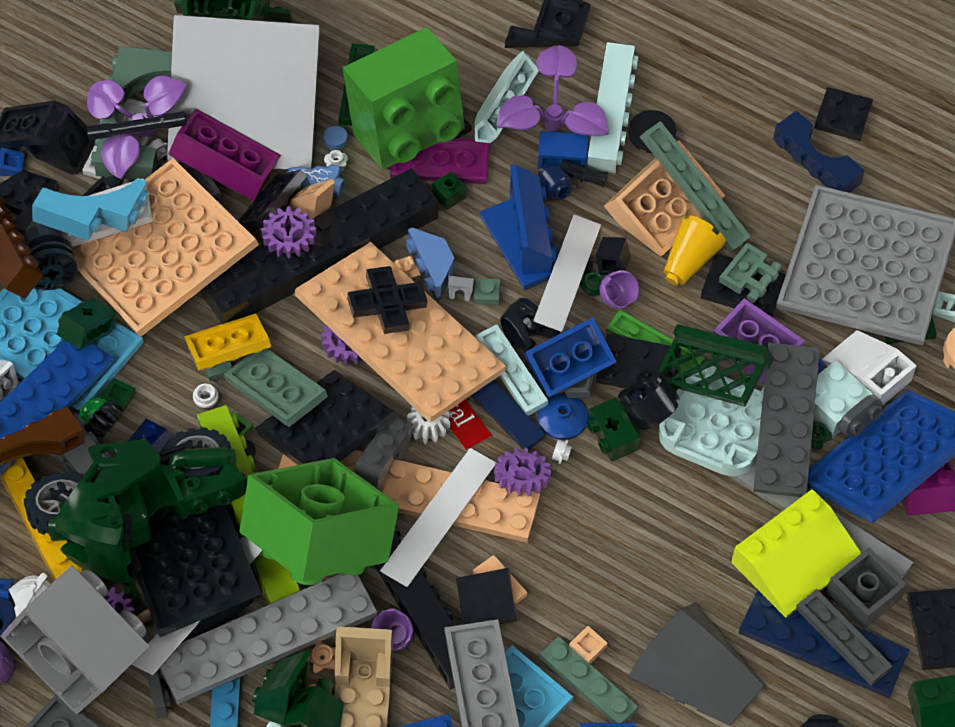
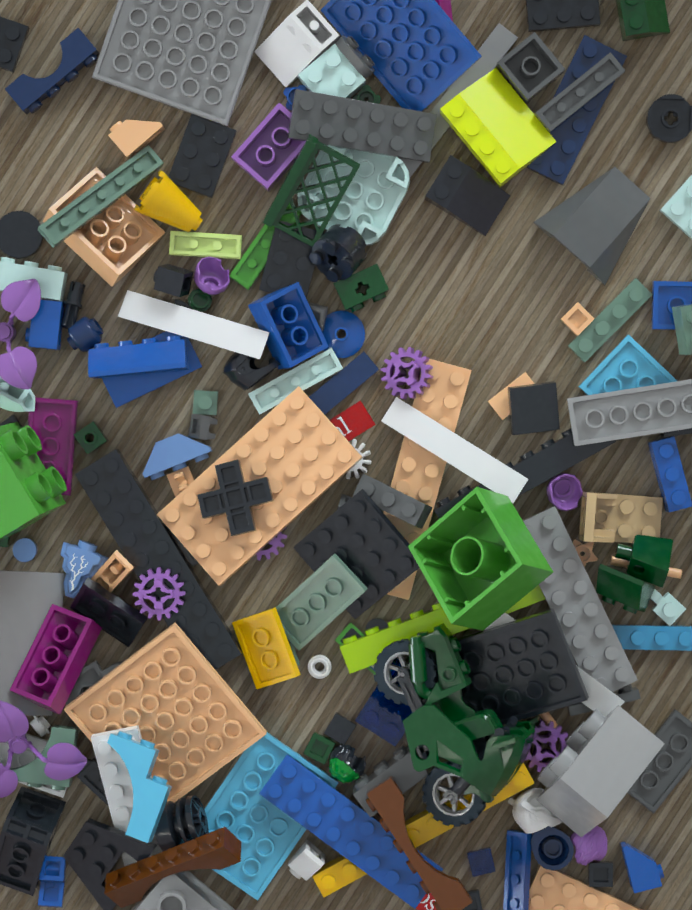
camera: 90 degrees left, 30 degrees up
(86, 323) = (266, 786): dark green brick -> none
(136, 414) = (340, 728): none -> black tile
(165, 121) = (35, 718): black piece -> none
(336, 154) = (46, 548): white plate -> none
(561, 451) = (382, 336): white plate -> none
(651, 290) = (205, 245): none -> yellowish green tile
(718, 528) = (467, 195): none -> black slope
(743, 269) = (193, 155): sand green plate -> none
(759, 222) = (134, 135): none -> light nougat slope

